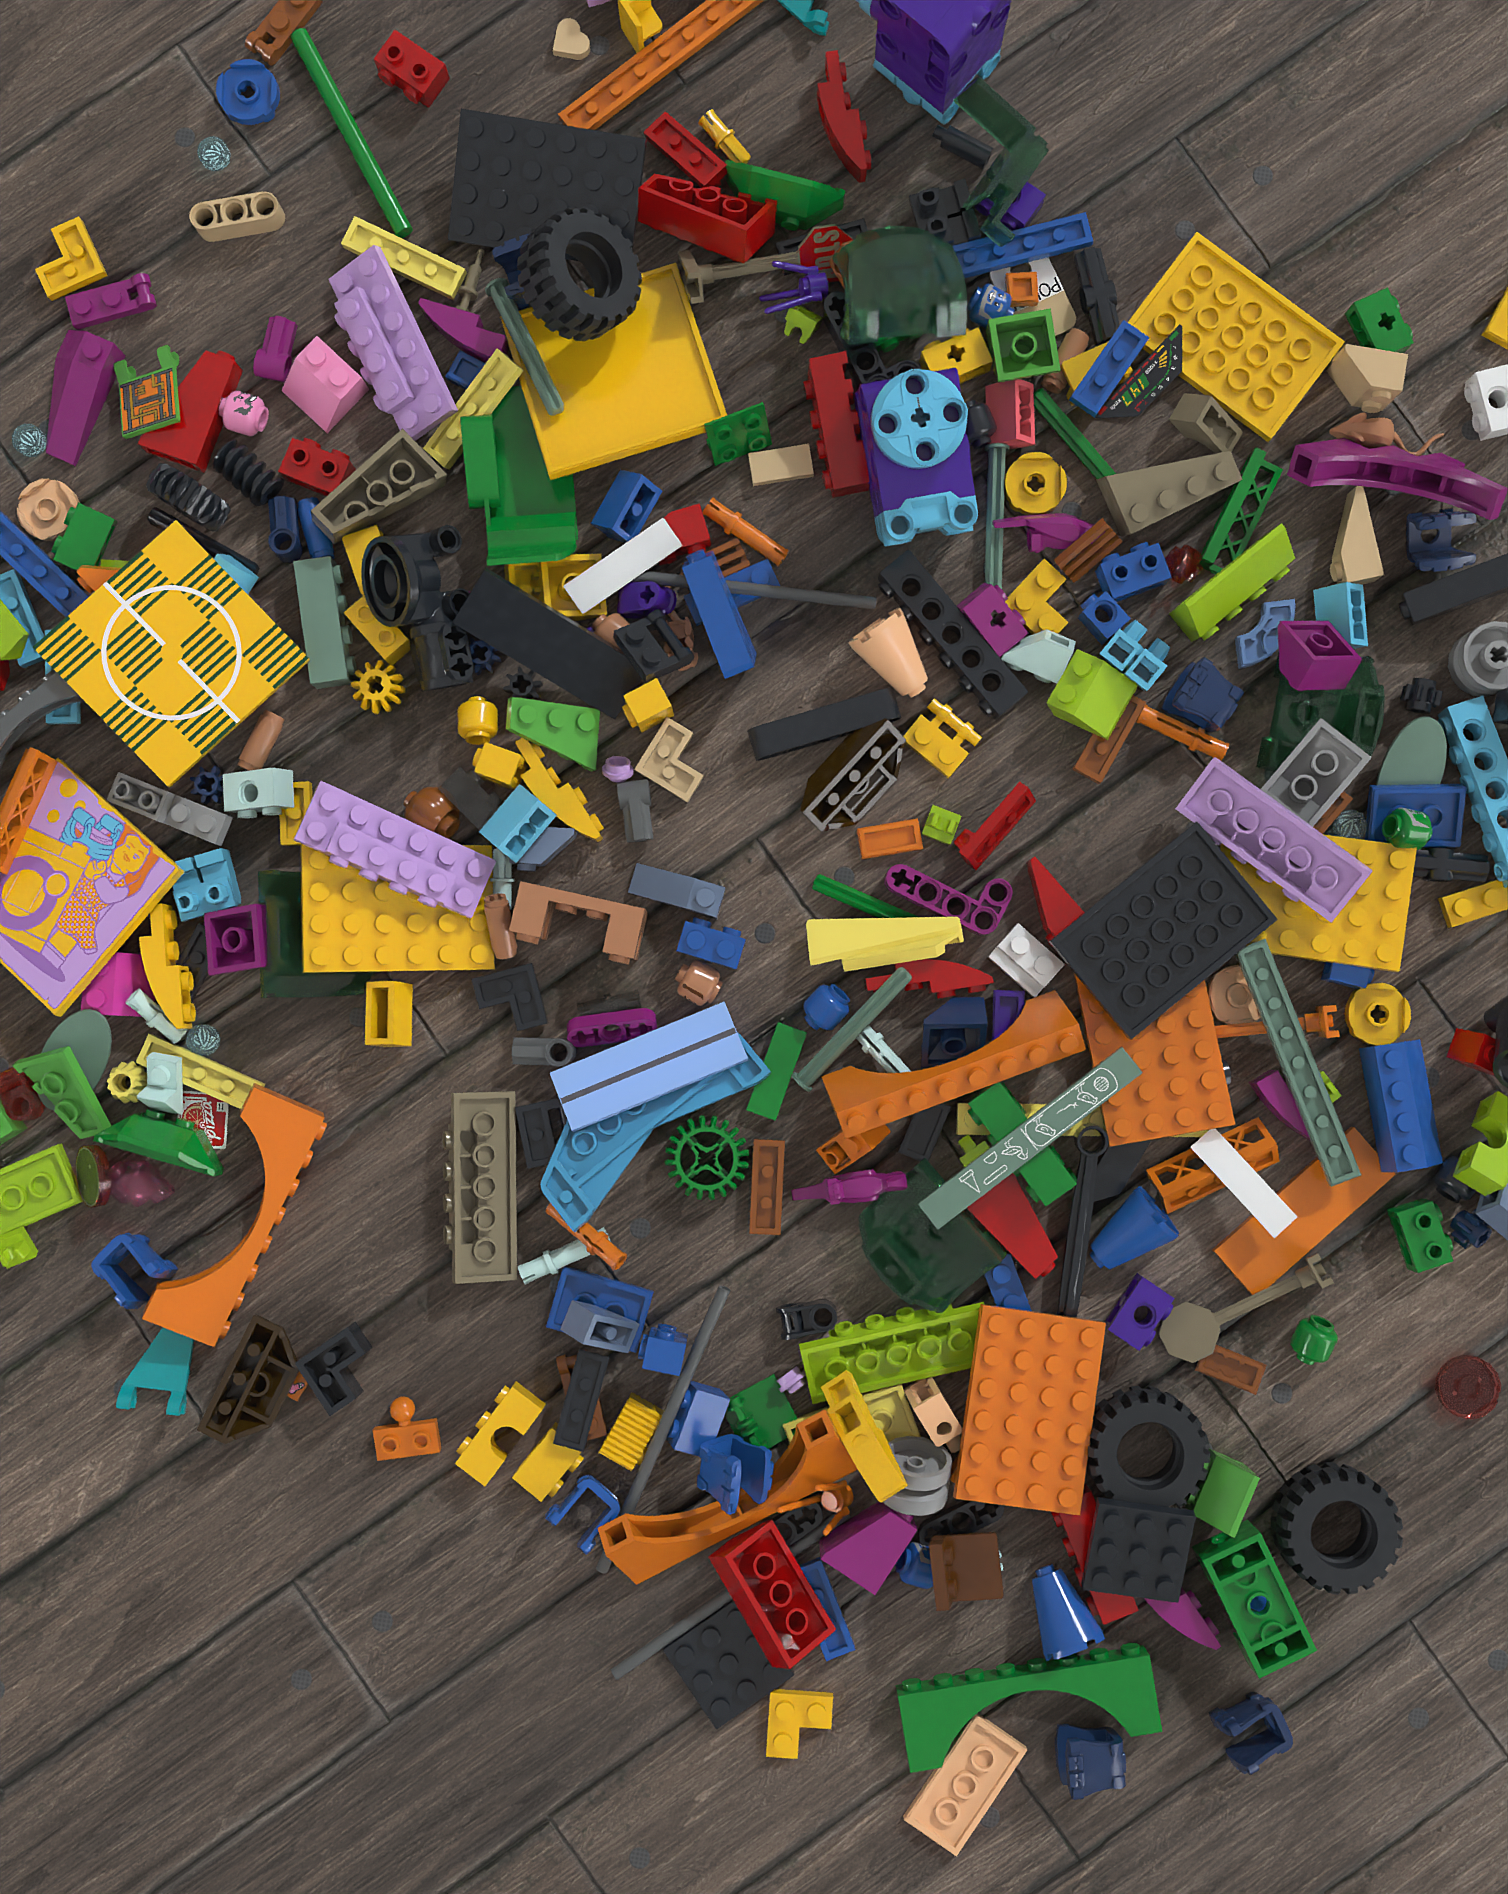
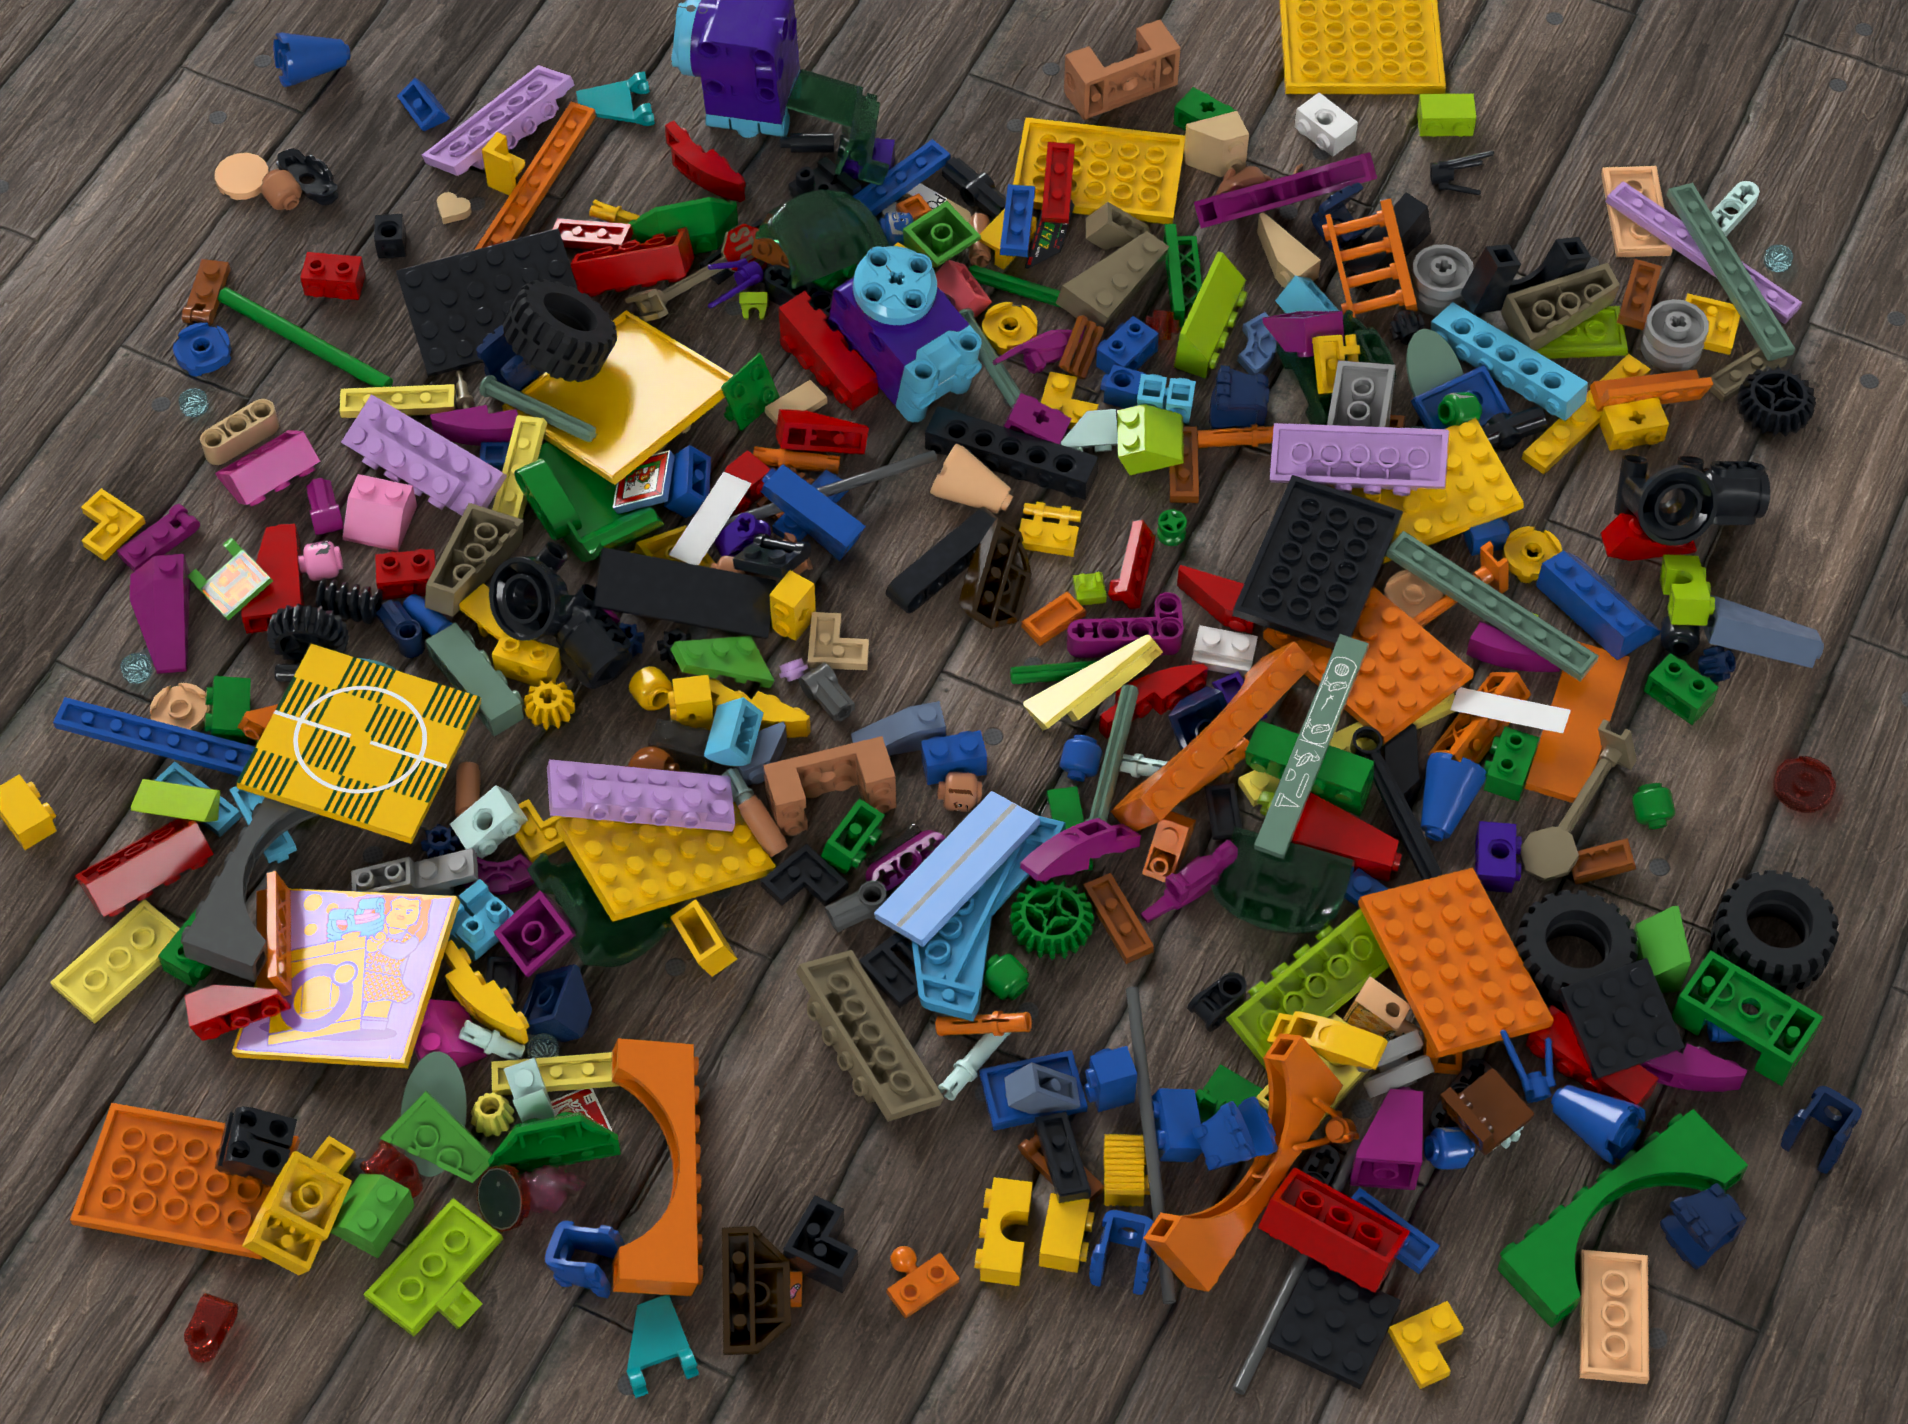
camera: 30 degrees left, 30 degrees down
(229, 1010) = (558, 1004): none -> dark blue slope
(245, 273) = (269, 467): none -> dark pink slope
(254, 845) = (504, 876): none -> magenta tile
(490, 35) = (390, 236): none -> black brick
(573, 983) = (852, 836): none -> green brick
(585, 491) = (646, 484): none -> tile
(634, 1193) = (1005, 976): none -> green head
(764, 1107) = (1075, 846): none -> magenta slope
(777, 512) = (819, 433): none -> red slope
(791, 1380) = (1238, 1057): lavender plate -> none
(1030, 1549) = (1534, 1084): none -> blue plant
(1059, 797) = (1177, 522): none -> green wheel
(1178, 338) = (1058, 182): none -> red hinge
(1212, 1225) = (1510, 763): none -> green brick
(1319, 702) = (1326, 355): none -> yellow plate
(1363, 240) = (1100, 88): none -> nougat plate
(1448, 634) = (1390, 244): none -> orange fence

